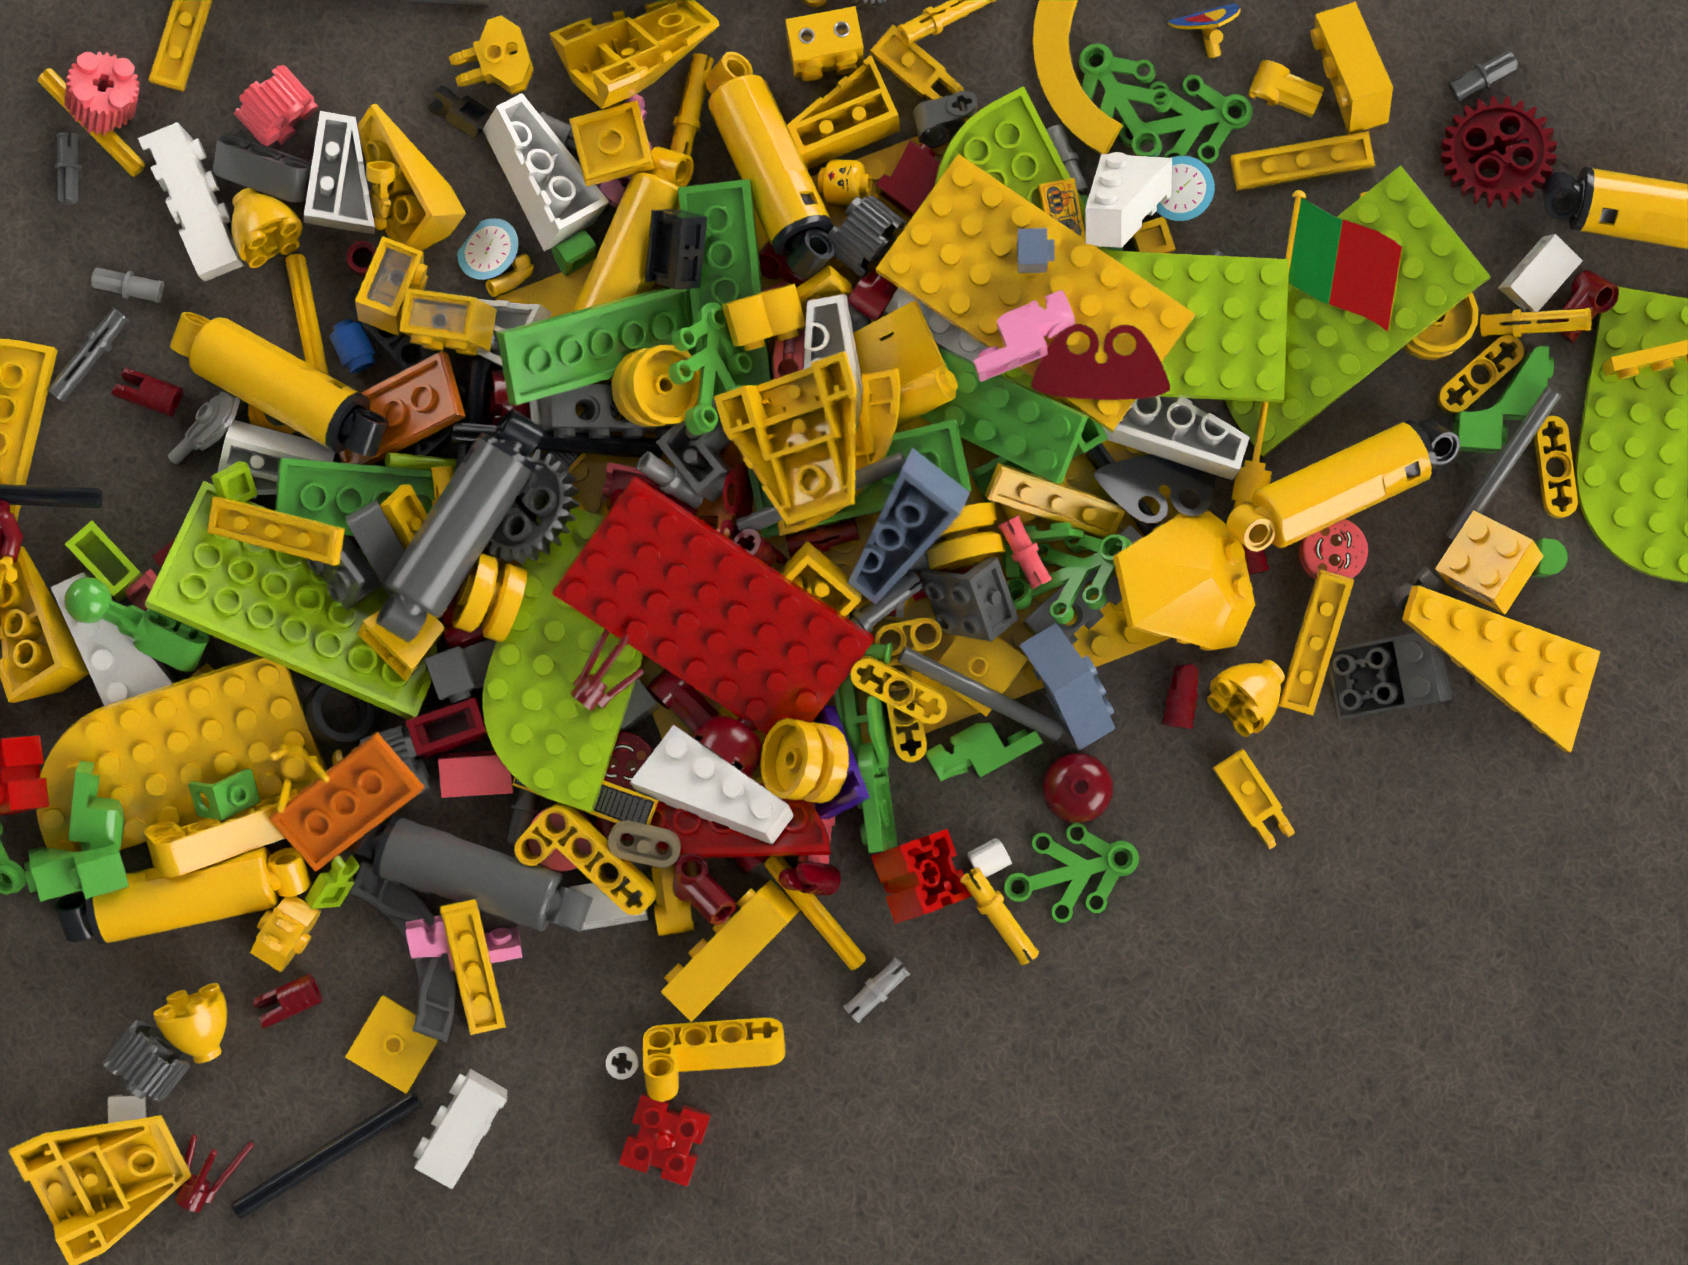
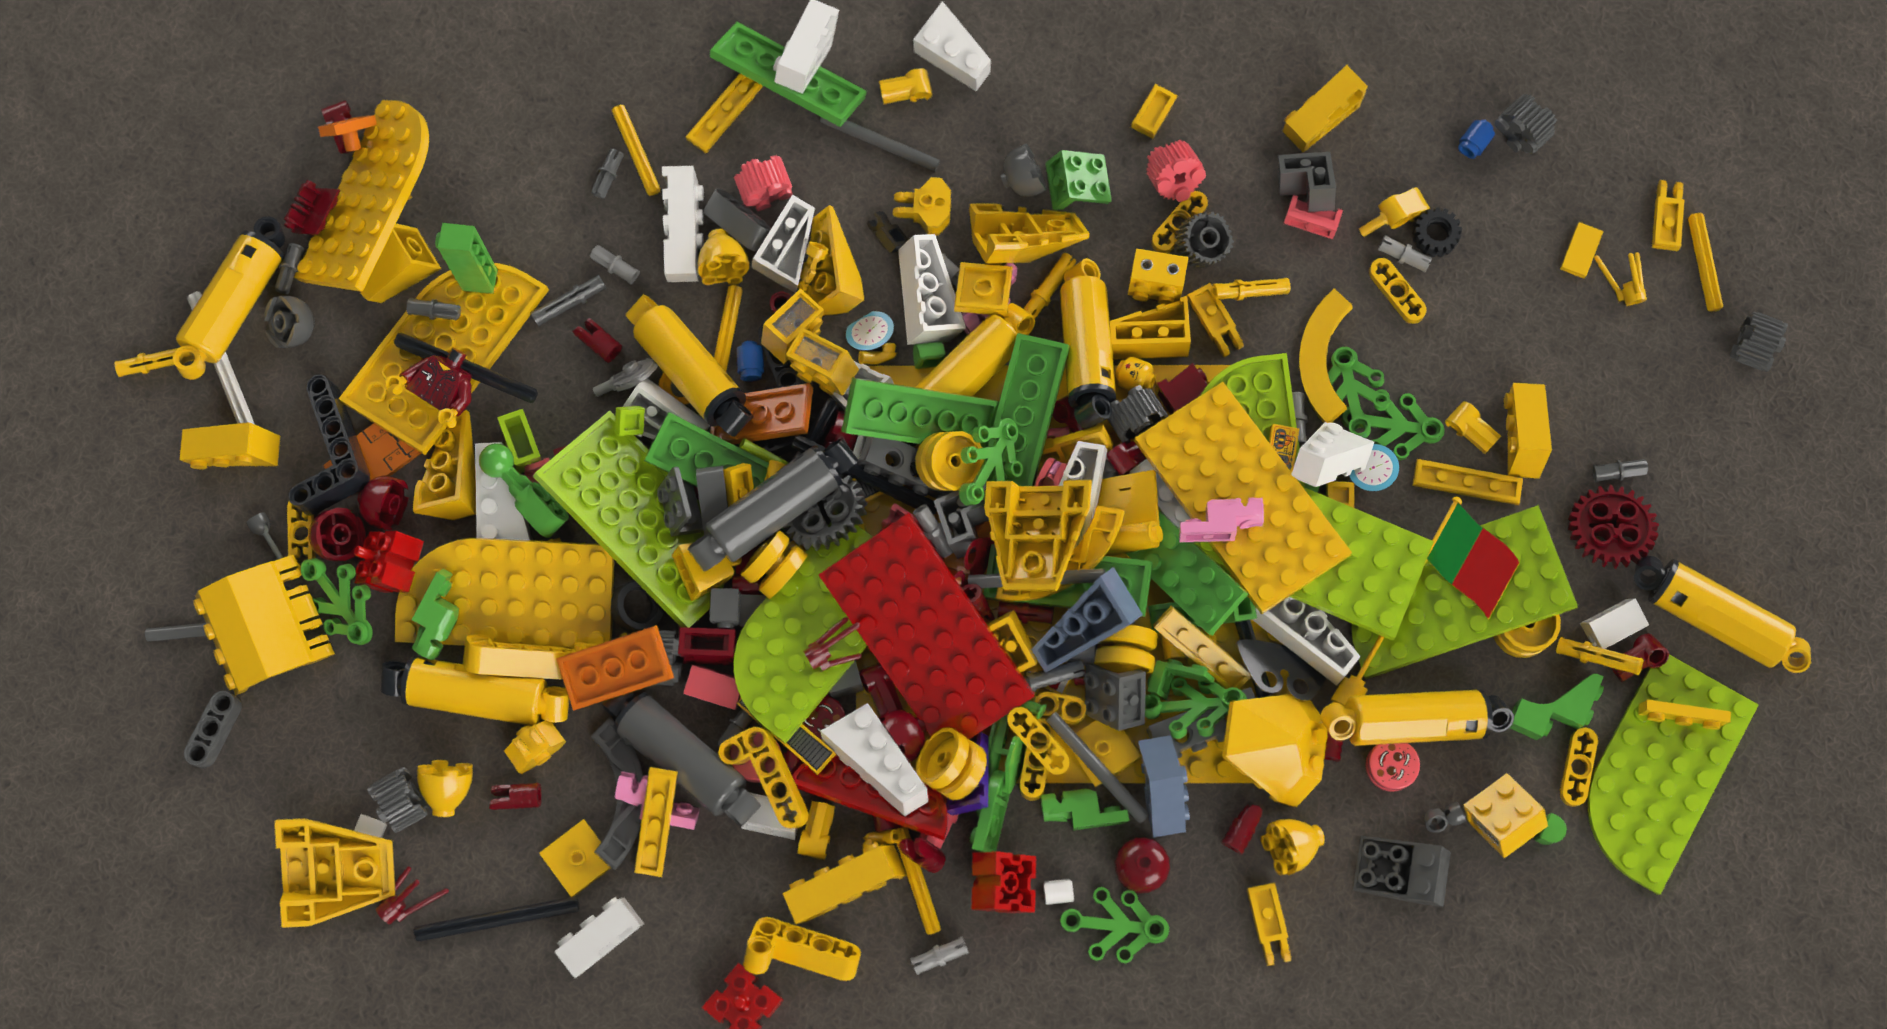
camera: 25 degrees right, 10 degrees down
(63, 872) = (401, 642): bright green arch -> none
(101, 91) = (651, 131): coral brick -> none
(225, 796) = (533, 632): bright green bracket -> none
(275, 530) = (644, 459): yellow tile -> none
(295, 765) = (589, 630): yellow plant -> none
(332, 887) = (581, 727): lime plate -> none
(612, 1069) = (725, 938): white bush -> none
(644, 845) = (812, 781): dark tan plate -> none
(676, 248) = (999, 373): black hinge -> none
(696, 886) = (839, 827): dark red piece -> none
(759, 874) = (882, 837): none -> yellow arm
(764, 316) = (1043, 441): yellow brick -> none
(942, 118) = (1219, 356): dark grey piece -> none
(991, 904) = (1047, 925): yellow pin -> none
(1025, 552) = (1167, 676): coral pin -> none
(1034, 250) = (1252, 464): sand blue plate -> none
(1118, 378) = (1281, 576): dark red piece -> none
(1208, 22) = (1433, 370): shield -> none
(1316, 642) = (1356, 825): yellow tile -> none
(1493, 350) = (1560, 665): yellow beam -> none
(1507, 459) = (1546, 744): dark grey piece -> none
(1519, 664) = (1503, 900): yellow wing -> none

